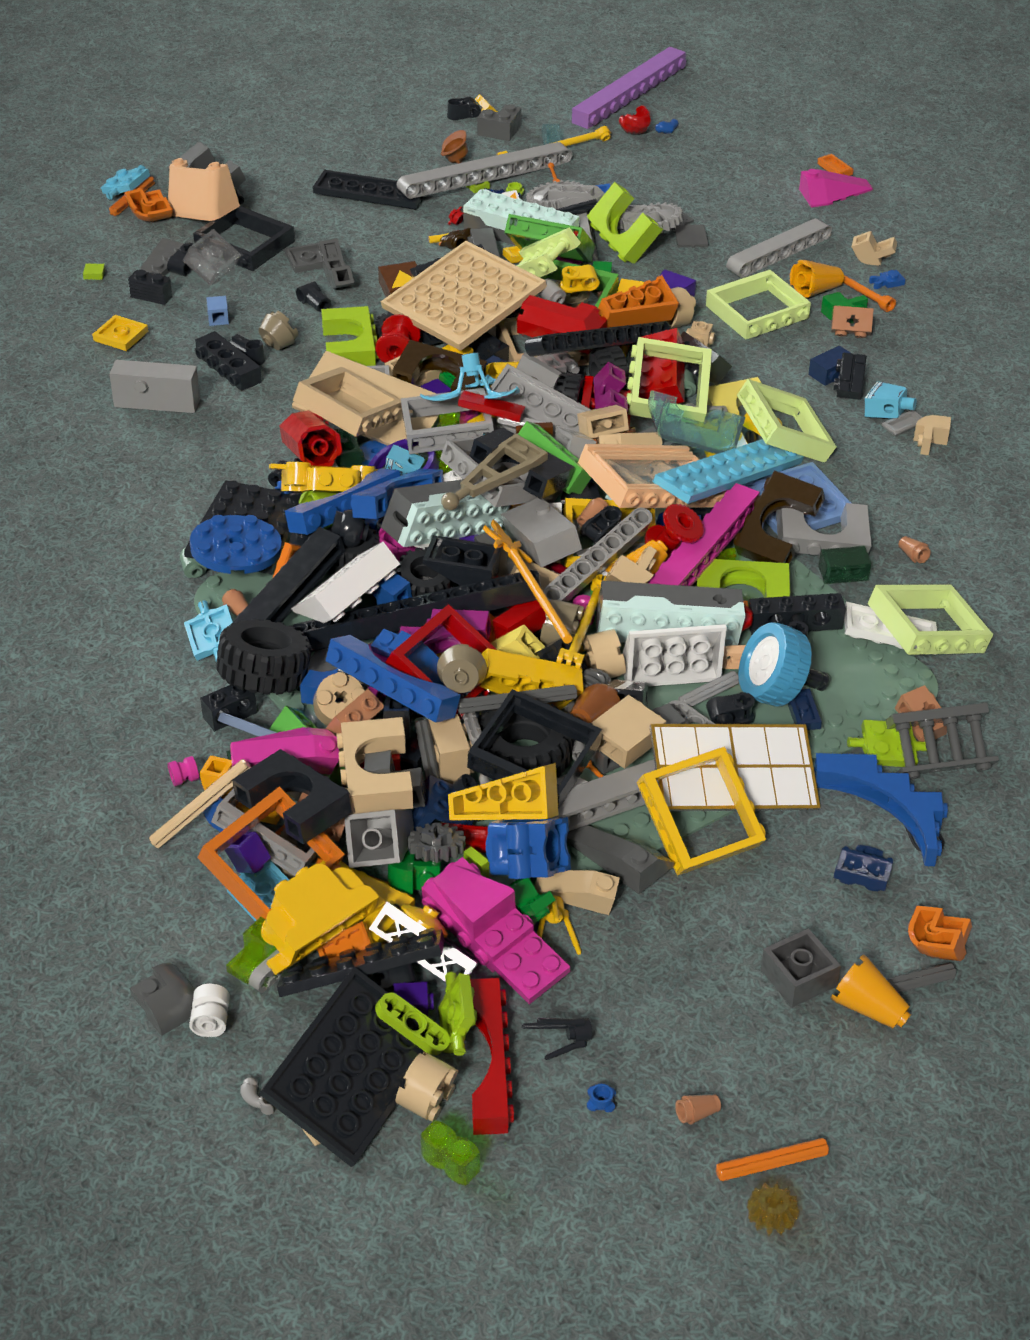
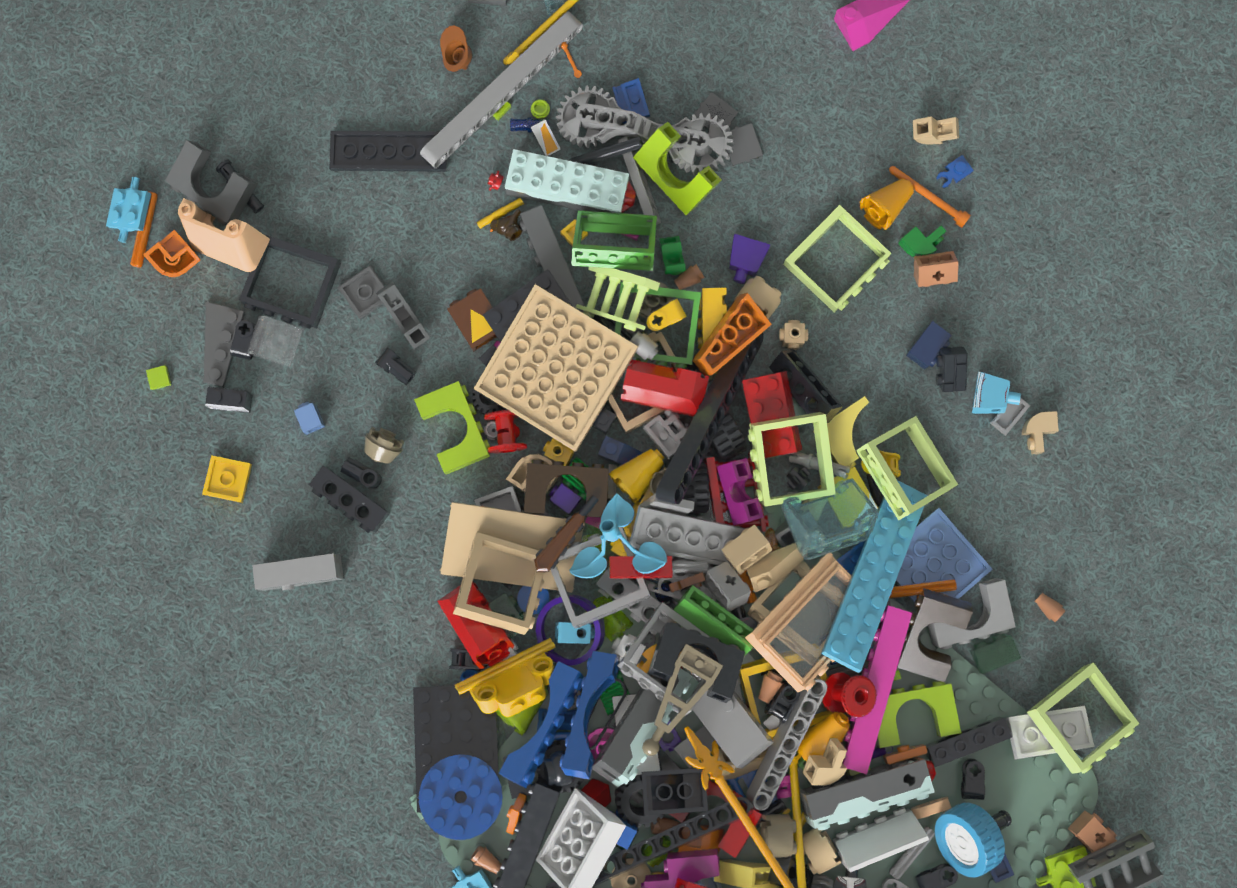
camera: 10 degrees left, 40 degrees up
(422, 388) = (557, 546): none -> reddish brown sword
(778, 247) = (837, 148): light grey beam -> none

